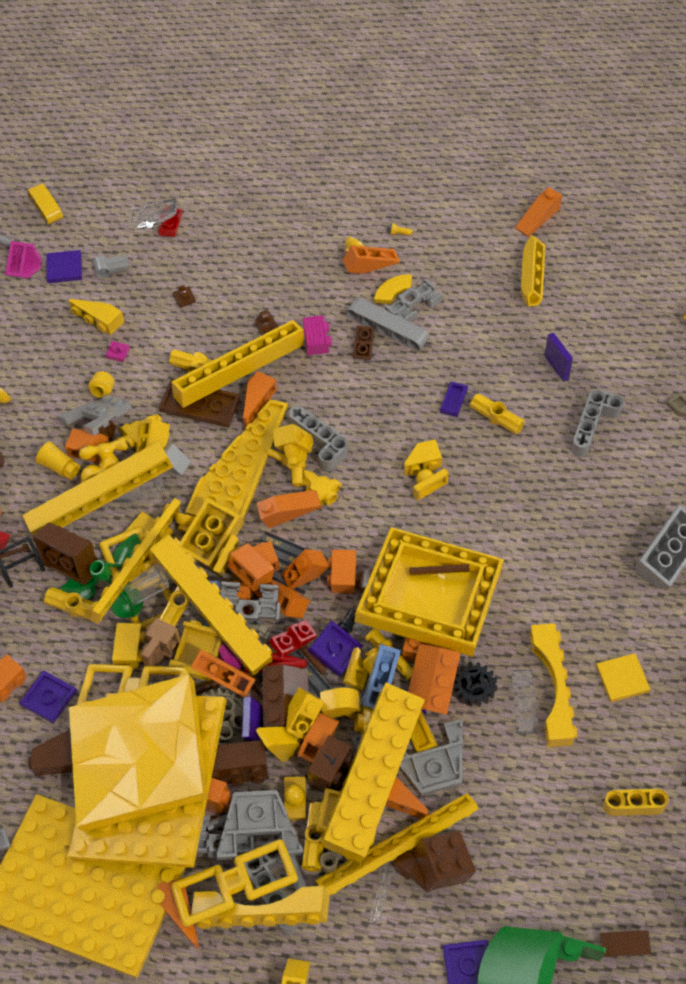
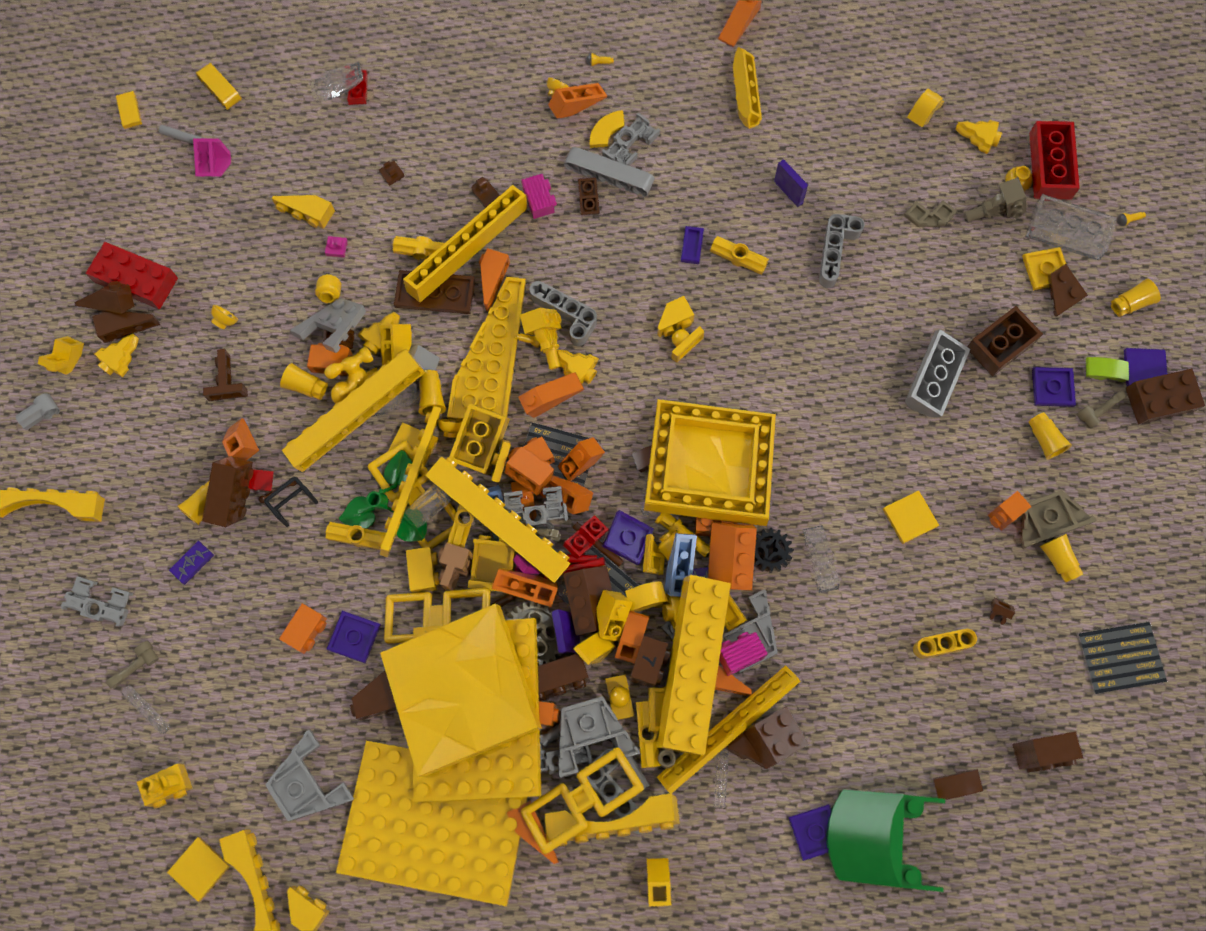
camera: 10 degrees left, 15 degrees up
(64, 266) = (256, 157): dark purple tile -> none
(65, 552) = (336, 485): reddish brown brick -> none
(105, 266) = (302, 150): light grey piece -> none
(174, 487) = (430, 392): none -> yellow plant
(343, 571) = (619, 454): orange brick -> none
(348, 621) = (635, 505): black pin -> none
(424, 771) = (741, 653): none -> dark pink brick
(439, 569) = (715, 438): reddish brown bar -> none
(558, 725) = (832, 497): yellow arch -> none

